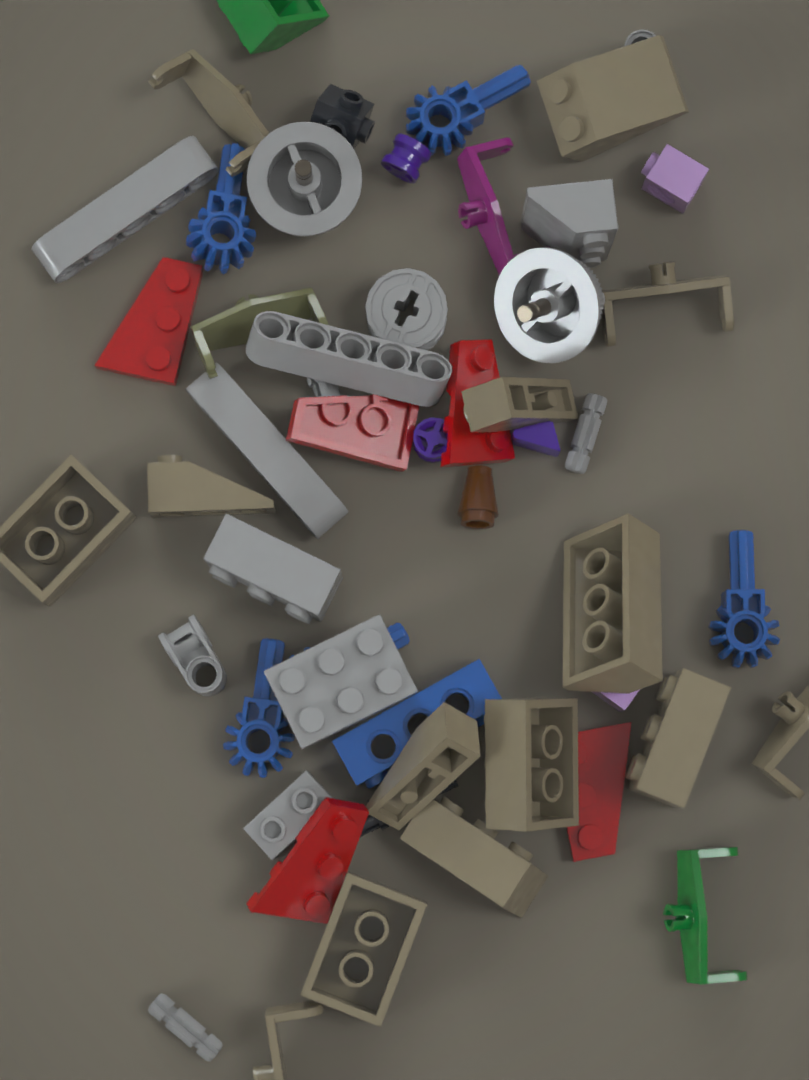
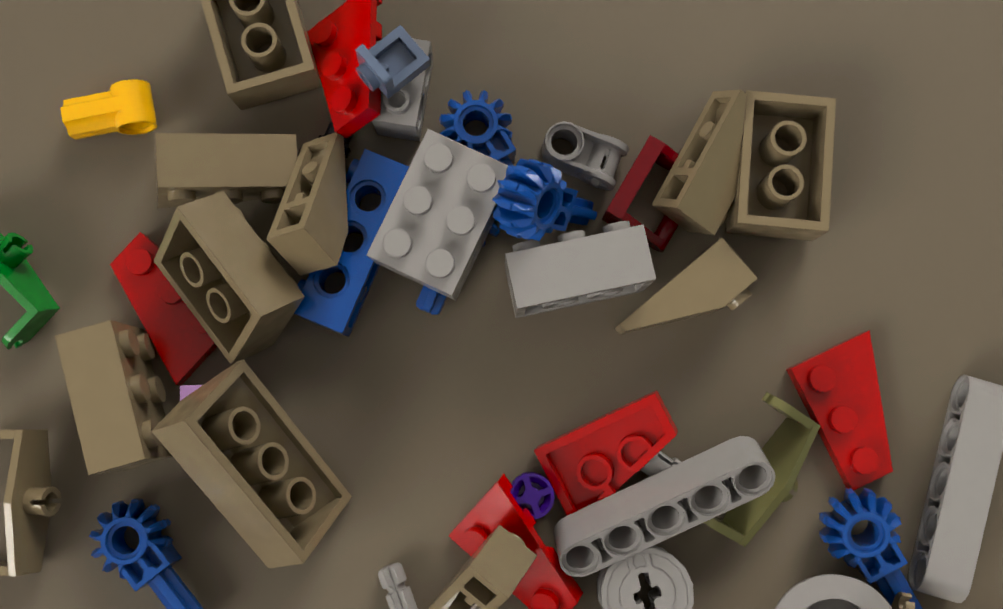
camera: 140 degrees right, 0 degrees up
(118, 570) = (707, 167): none -> dark tan slope
(174, 606) = (652, 152): none -> dark red tile
(264, 635) = (536, 201): none -> blue gear
(267, 451) = (666, 370): light grey beam -> none
(287, 824) = (391, 62): none -> sand blue bracket
(478, 499) = (452, 475): reddish brown cone -> none
(518, 972) = (123, 109): none -> yellow piece
(538, 437) = (440, 570): dark purple slope -> none

